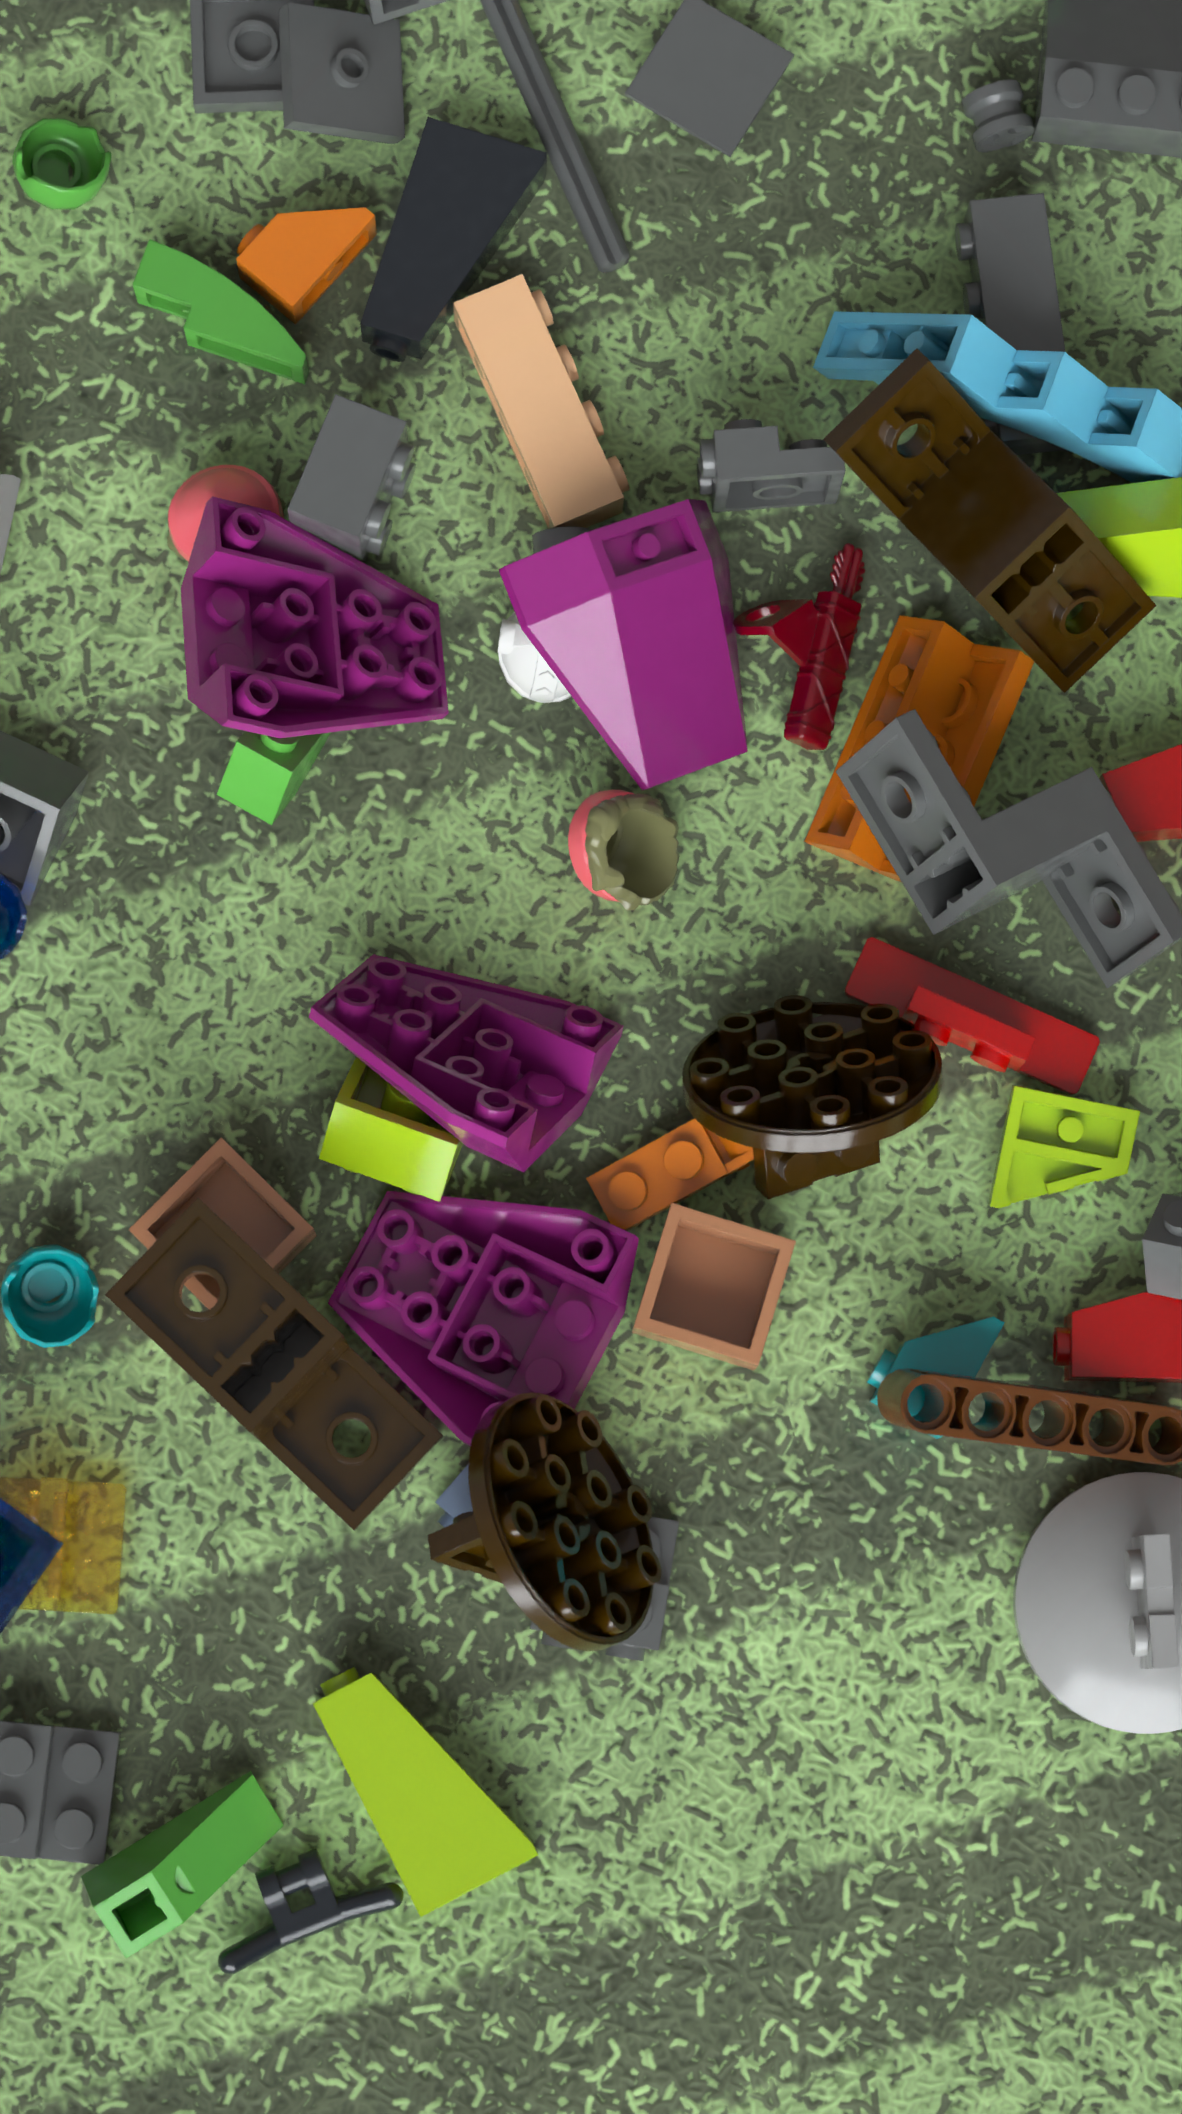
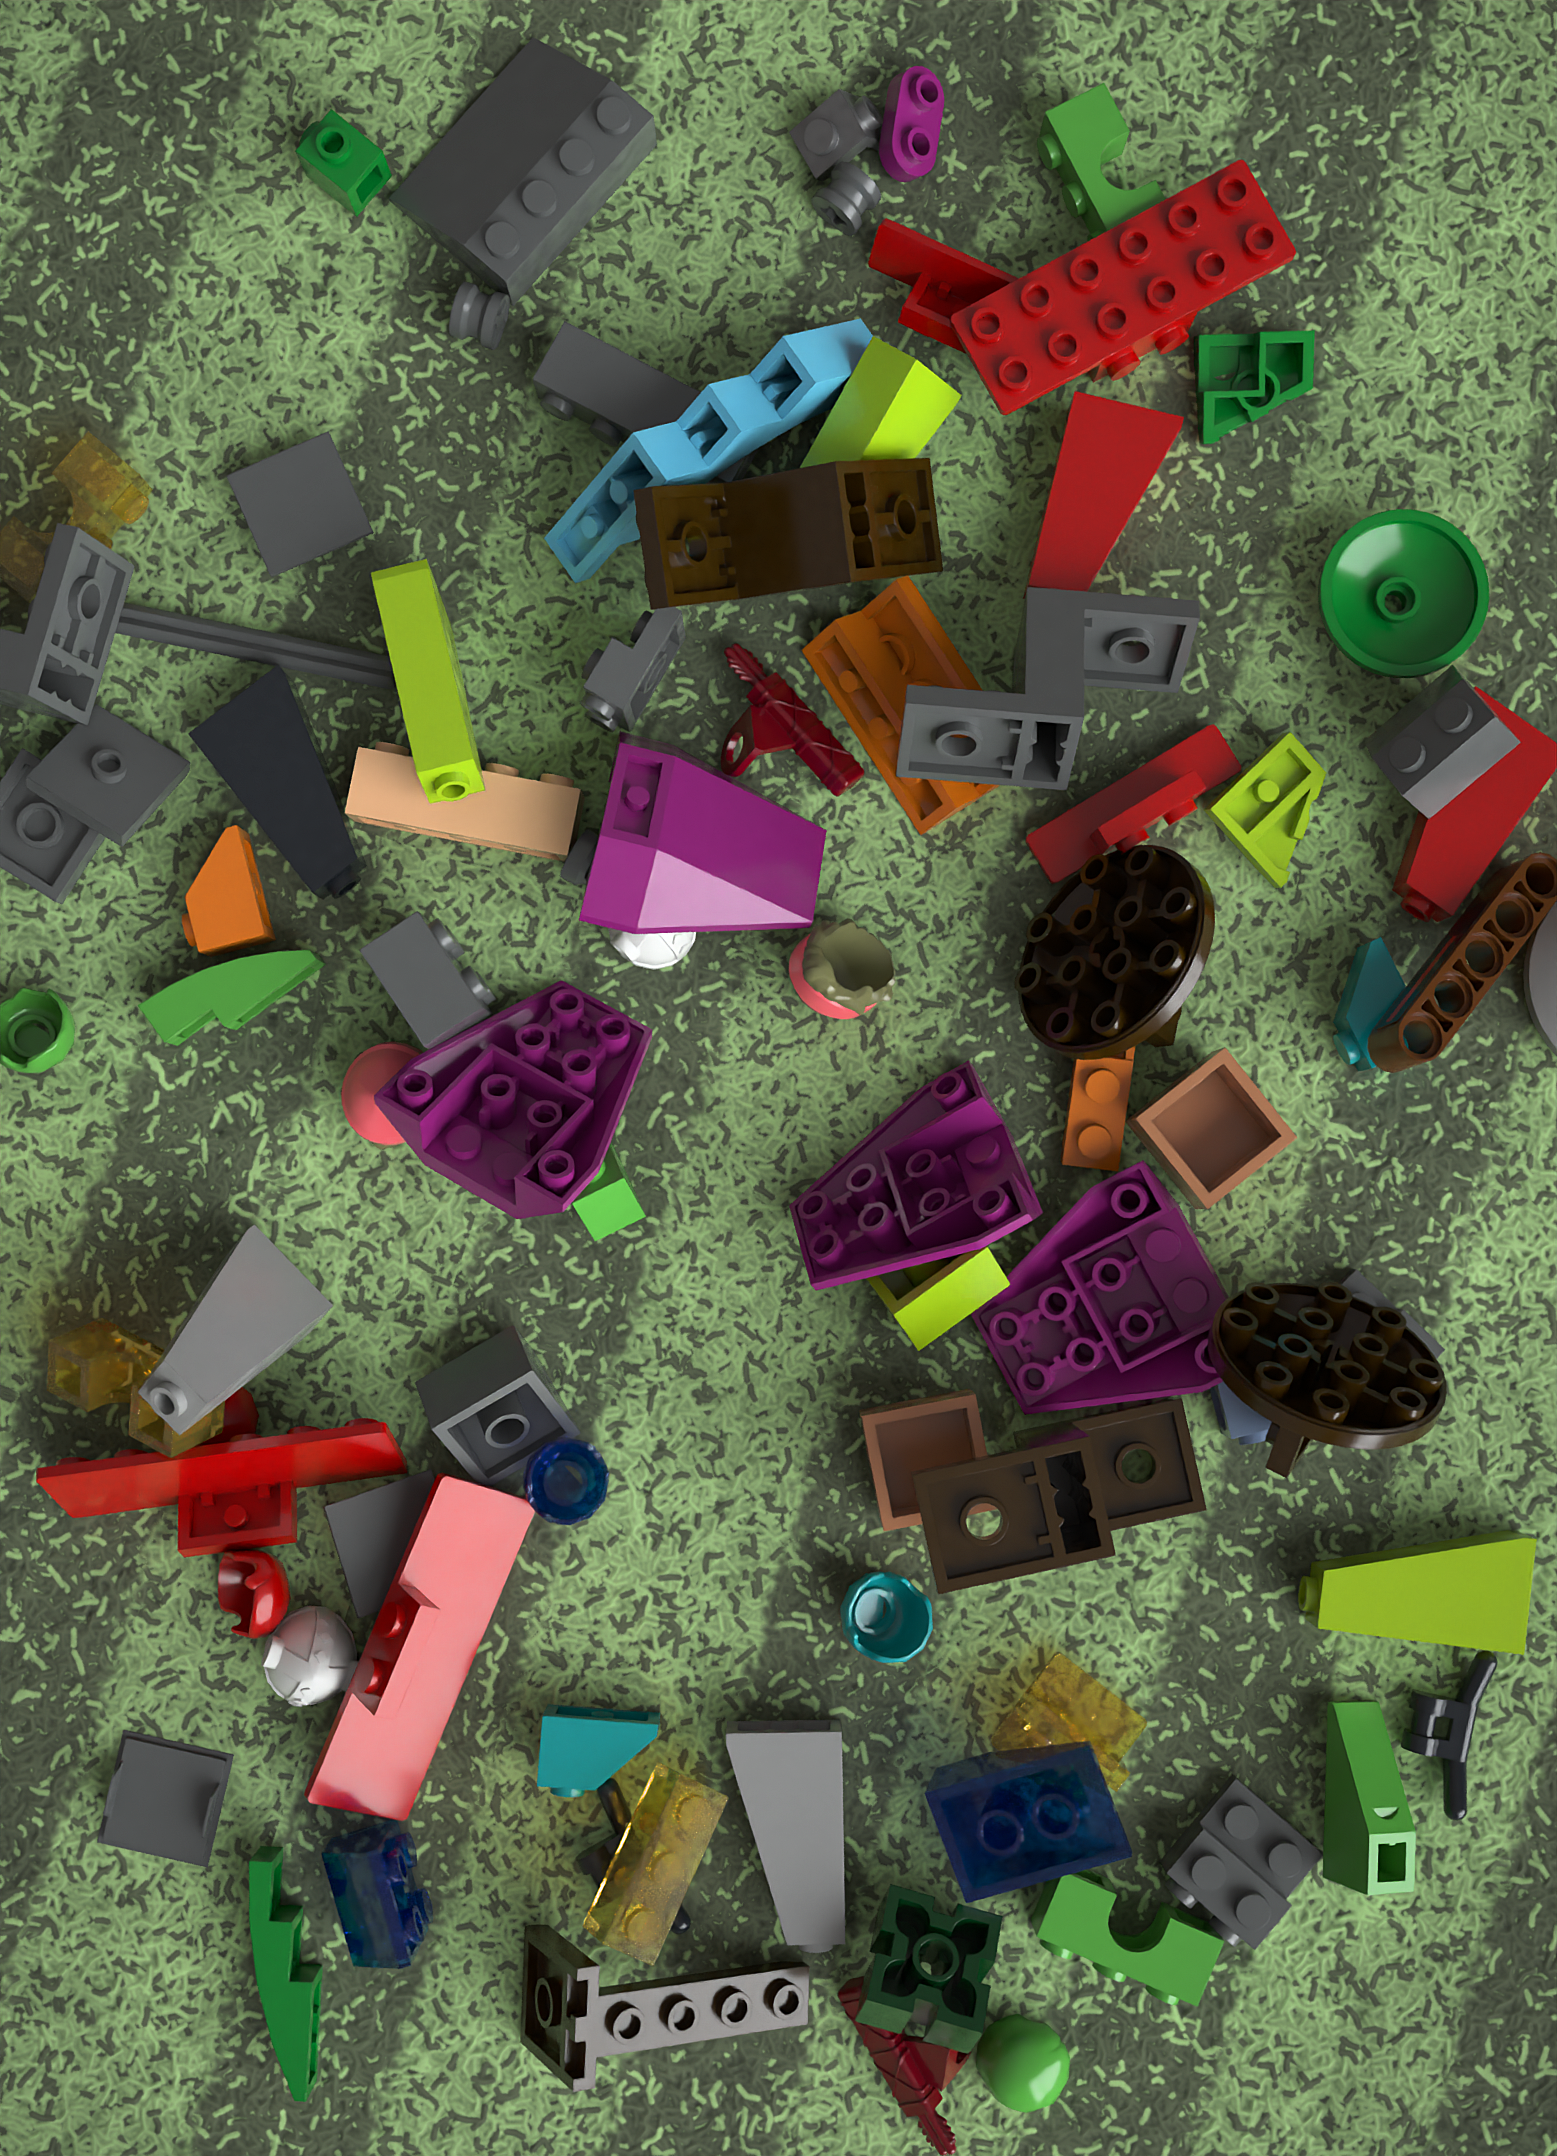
camera: 50 degrees left, 5 degrees up
(624, 294) = (428, 681): none -> lime slope

